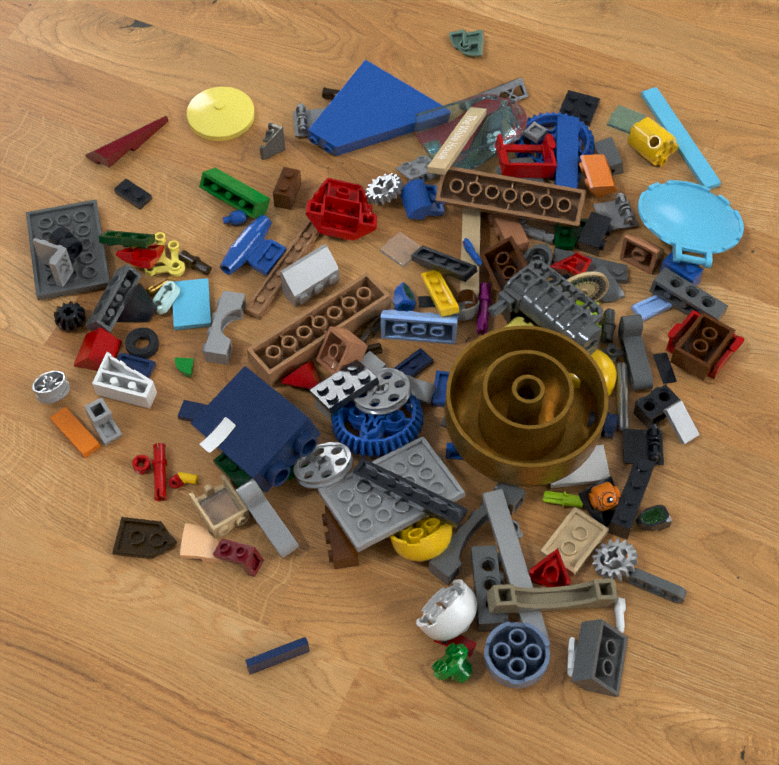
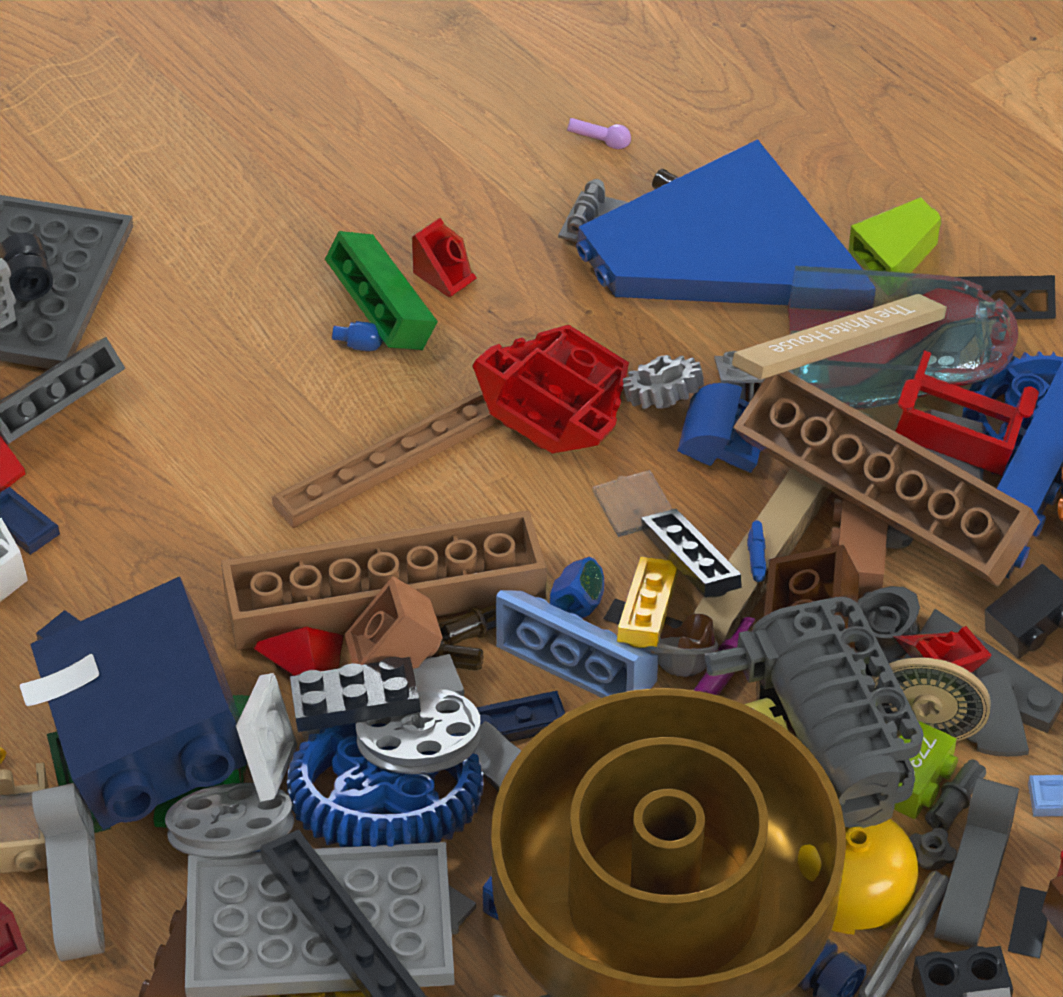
camera: 25 degrees right, 10 degrees down
(113, 151) = (213, 147): dark red wedge -> none
(127, 239) = (138, 298): dark green plate -> none
(133, 194) = (205, 232): black plate -> none
(139, 307) = (86, 421): black slope -> none
(140, 333) = (53, 469): black tyre -> none
(141, 257) = (145, 337): red brick -> none
(153, 290) = (136, 405): pearl gold piece -> none
(165, 297) = (144, 423): light aqua beam -> none
(169, 265) = (195, 380): light yellow plant -> none
(185, 366) = (106, 554): green tile -> none
(192, 305) = (186, 453): medium azure tile -> none
(194, 262) = (236, 384): dark brown axle -> none
(220, 113) = (448, 152): light yellow dish -> none
(229, 309) = (244, 486): light grey arch -> none
(251, 169) = (441, 258): none -> red slope
(252, 247) = (354, 398): blue plate -> none
(274, 141) = (505, 233): dark grey slope -> none
(287, 188) = (482, 317): reddish brown brick -> none
(291, 79) = (615, 136): none -> lavender bar
(309, 276) = (423, 480): slope -> none
(318, 421) = (266, 736): none -> white tile
(443, 84) = (896, 238): none -> lime slope
(468, 43) = (993, 185): sand green brick -> none
(535, 132) = (1015, 378): light grey tile -> none
(538, 234) = (918, 572): light grey axle -> none
(566, 237) = (971, 595): dark green wing -> none

